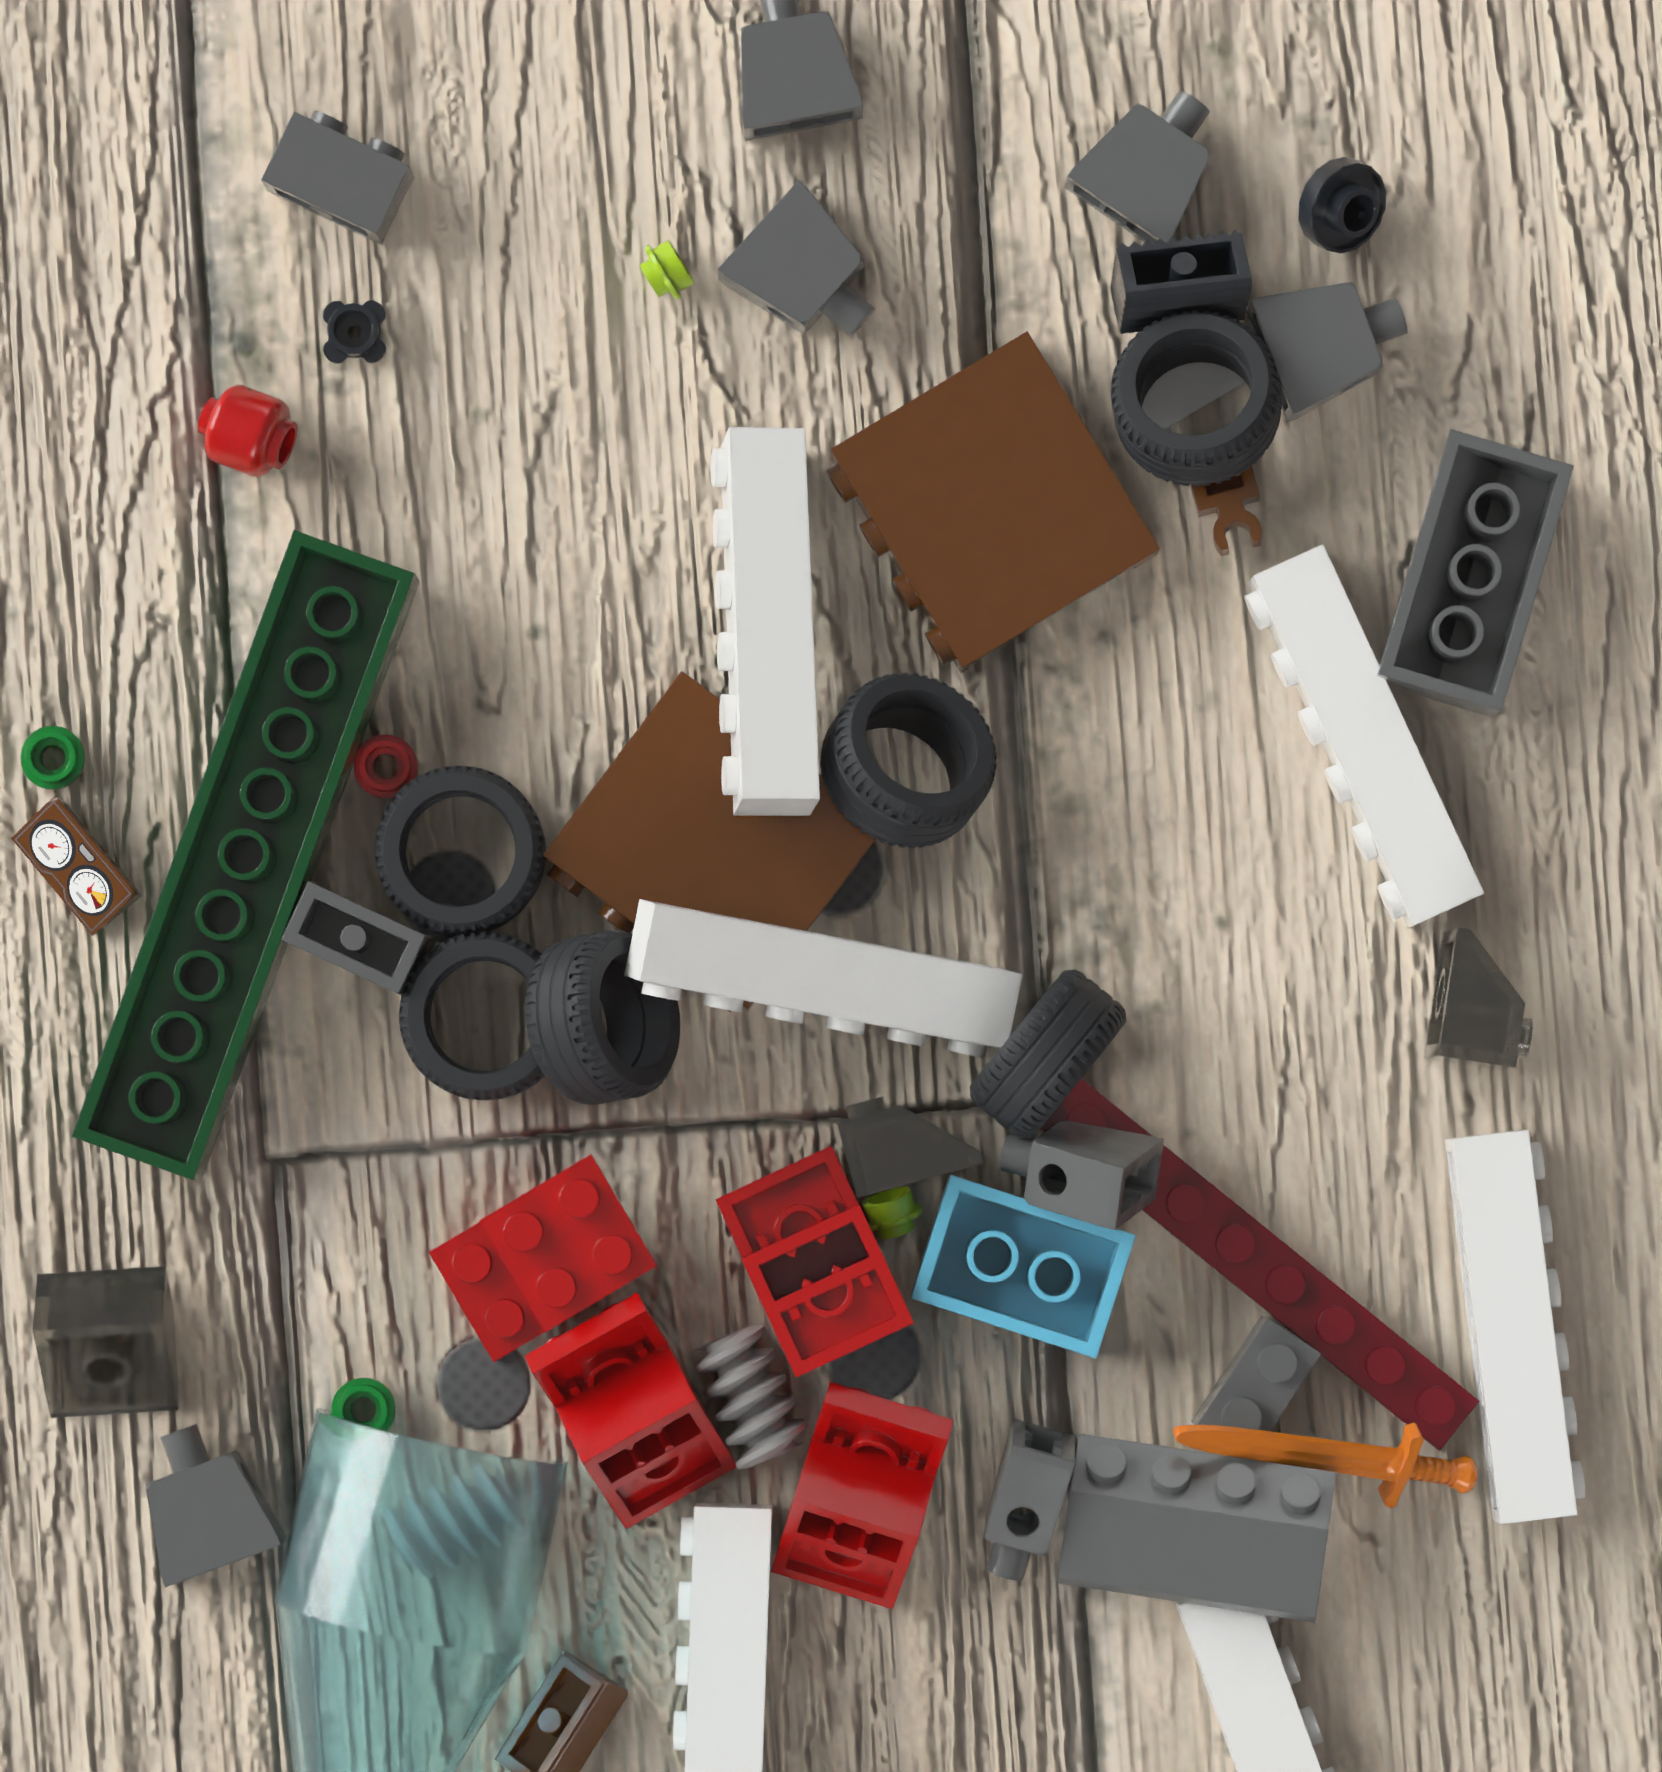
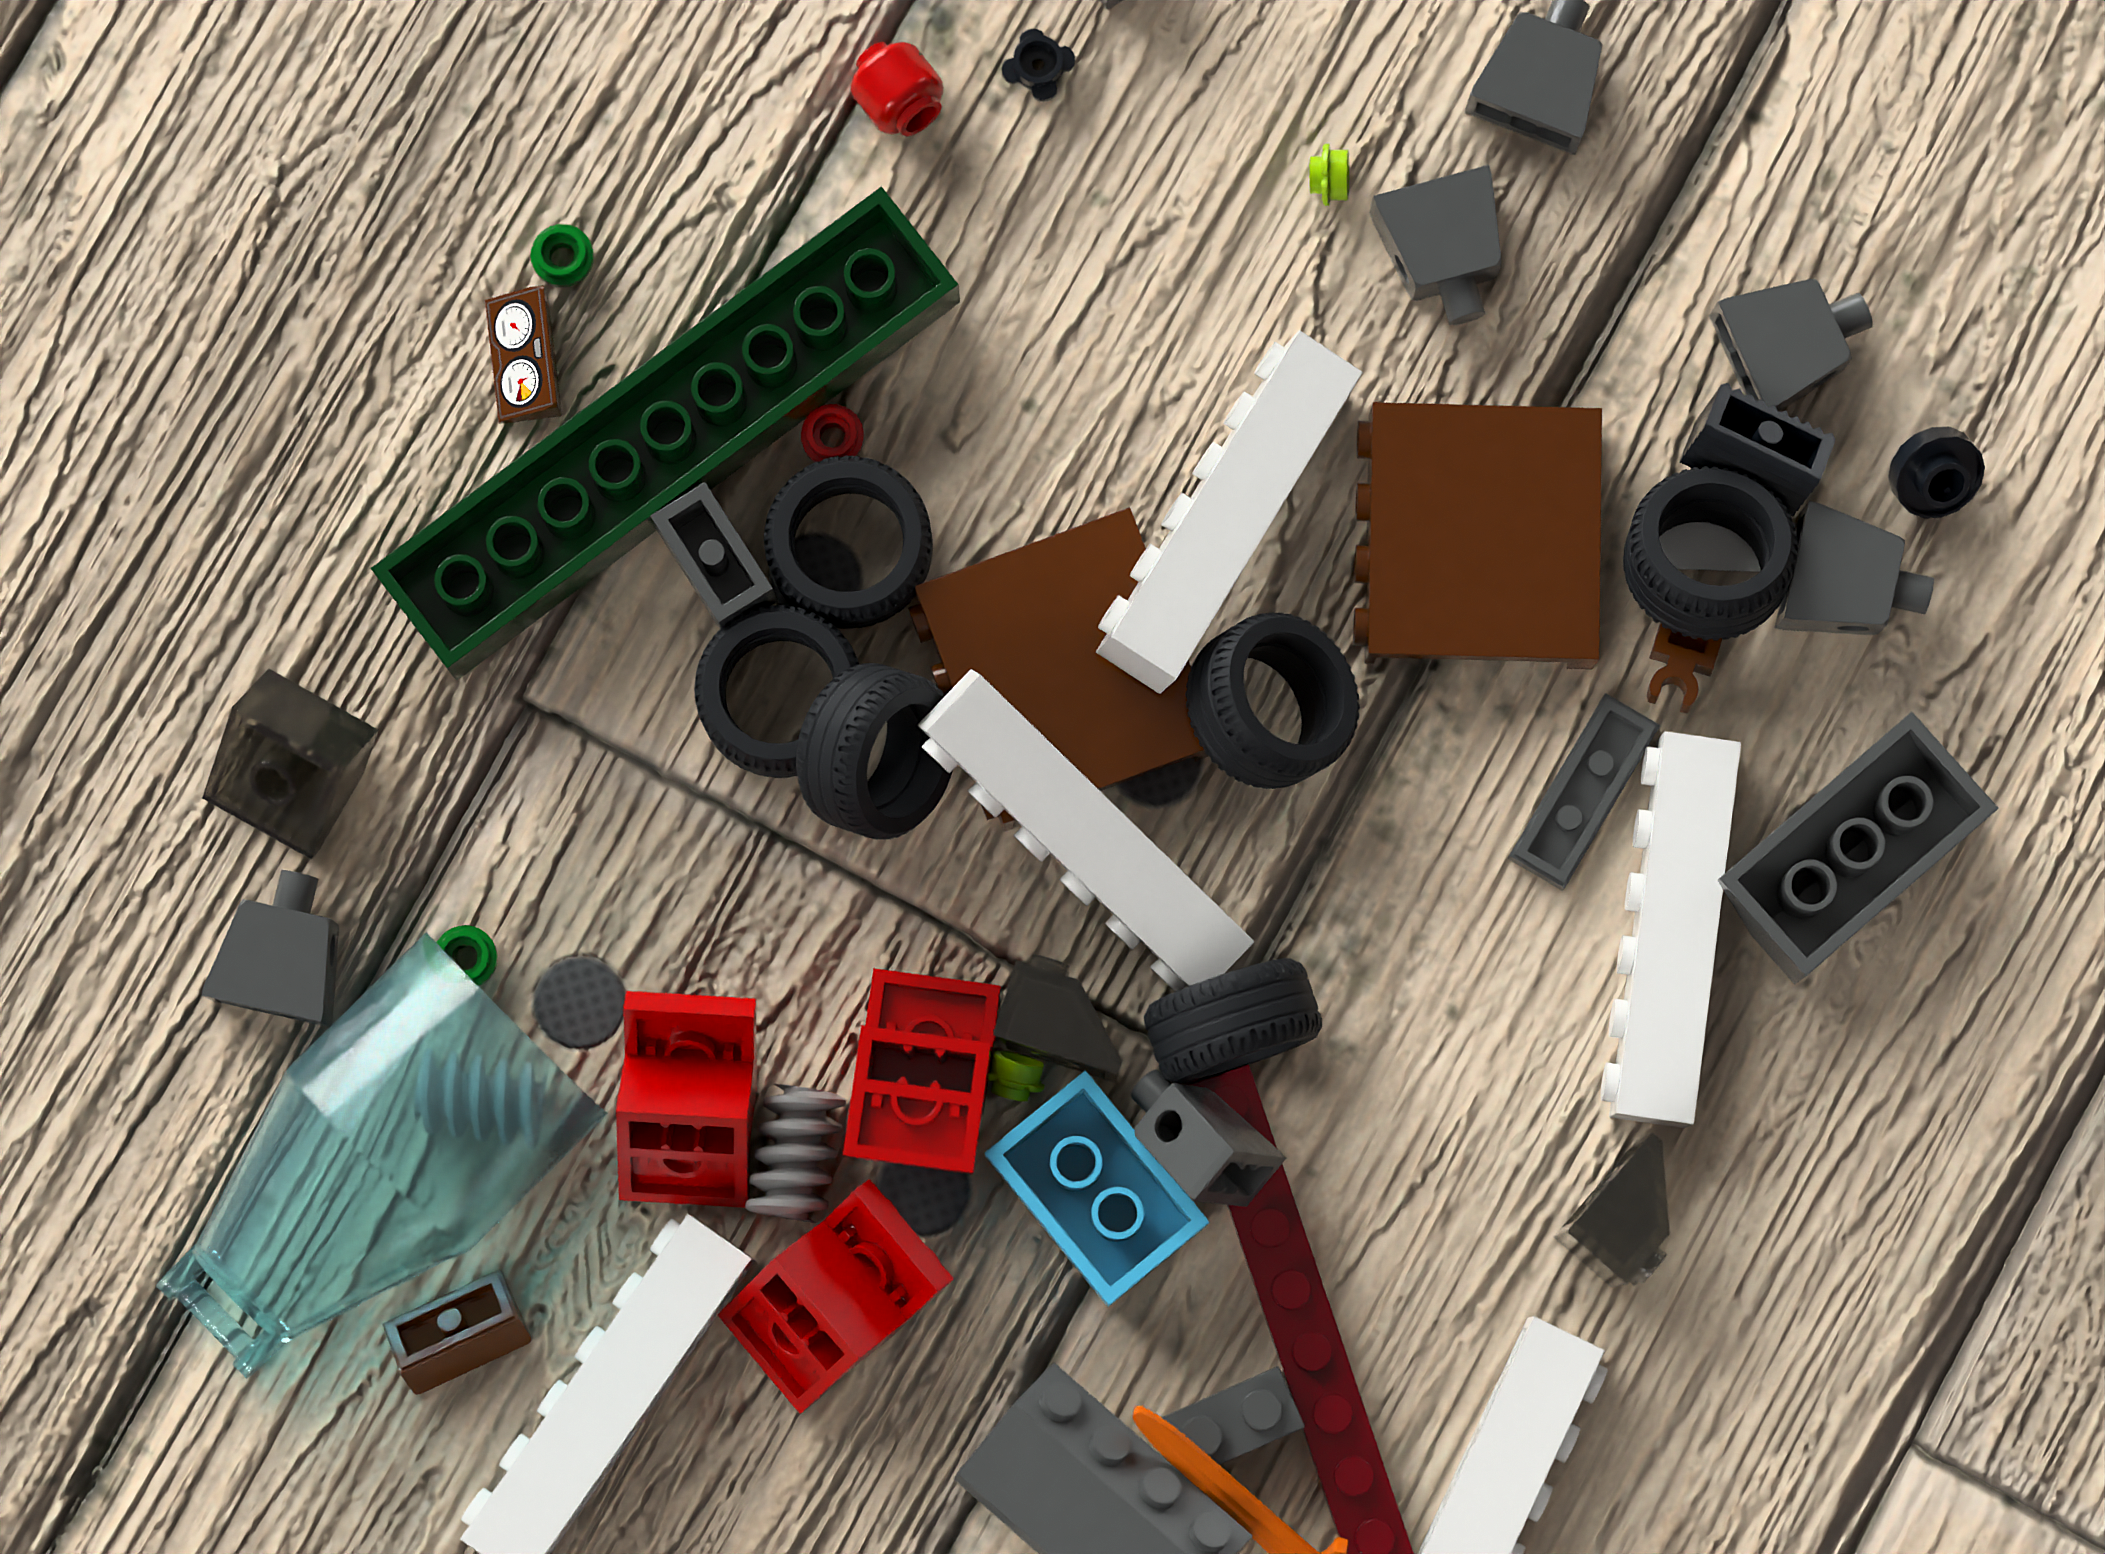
camera: 40 degrees right, 5 degrees down
(543, 1258) = (696, 923): red bracket -> none
(1033, 1476) = (992, 1375): dark grey torso -> none
(1214, 666) = (1583, 792): none -> dark grey tile

